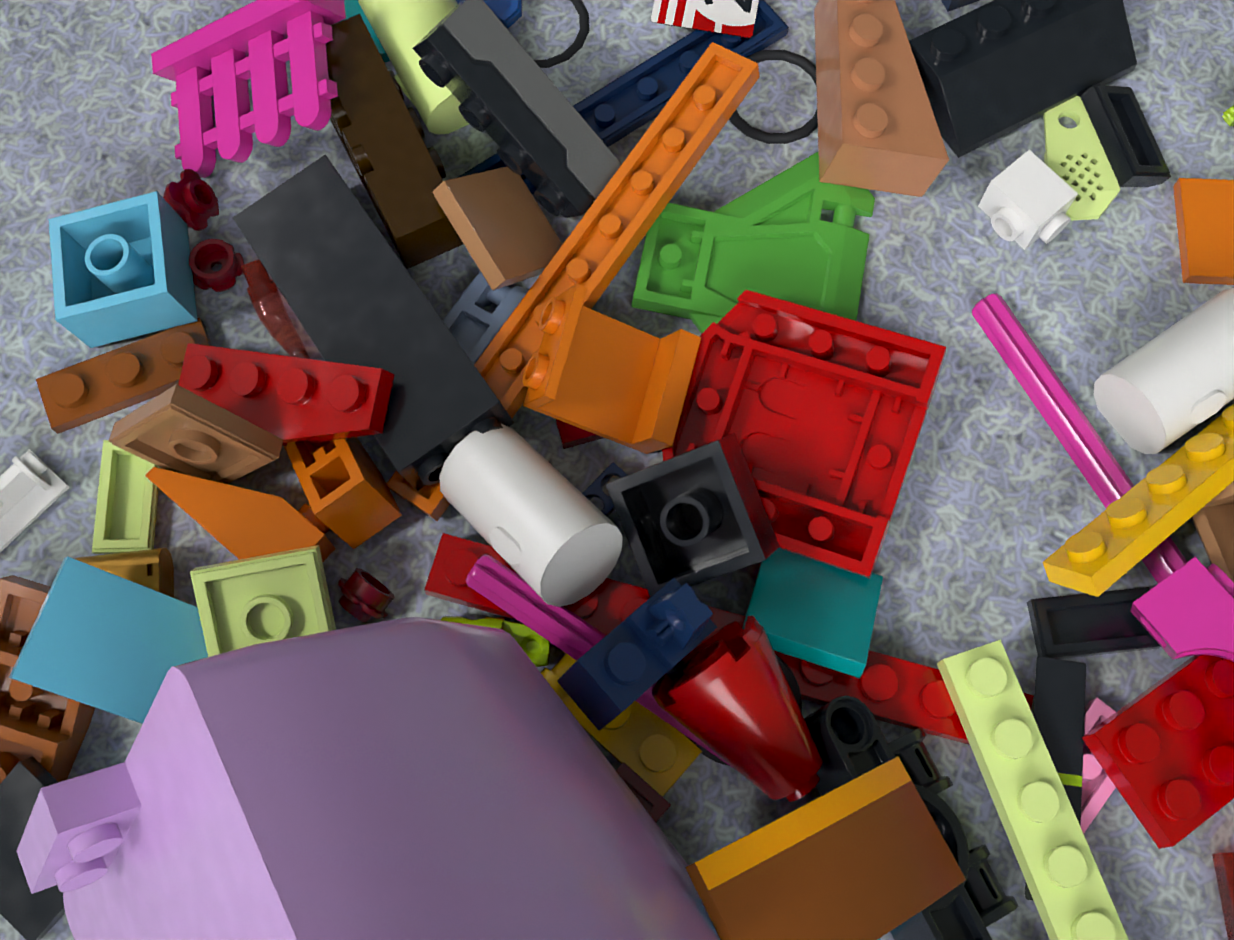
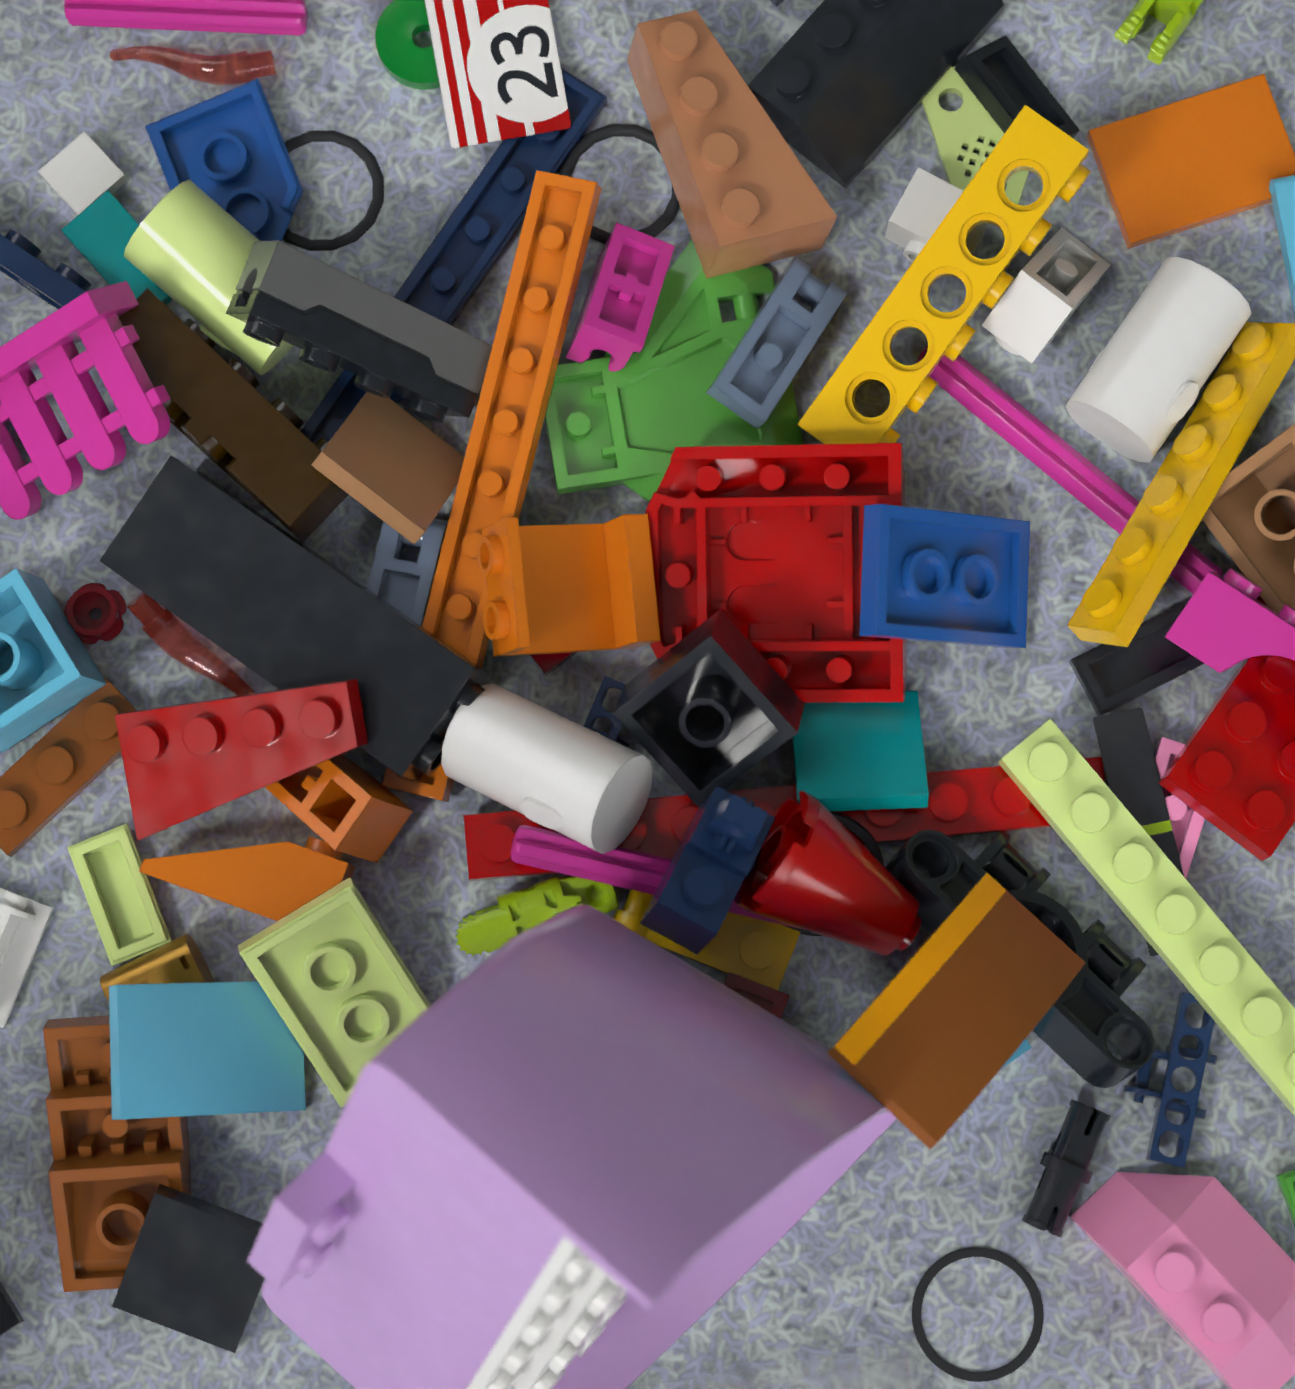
camera: 15 degrees left, 10 degrees up
(192, 199) = (37, 550): dark red plate -> none
(195, 437) = (180, 818): medium nougat tile -> none
(364, 596) = (408, 905): dark red plate -> none
(743, 165) = (621, 297): none -> dark pink hinge
(859, 247) = (776, 343): none -> sand blue plate
(942, 480) = (944, 577): none -> blue plate
(1100, 290) = (1045, 295): none -> white slope
(1139, 147) = (1026, 146): none -> yellow brick

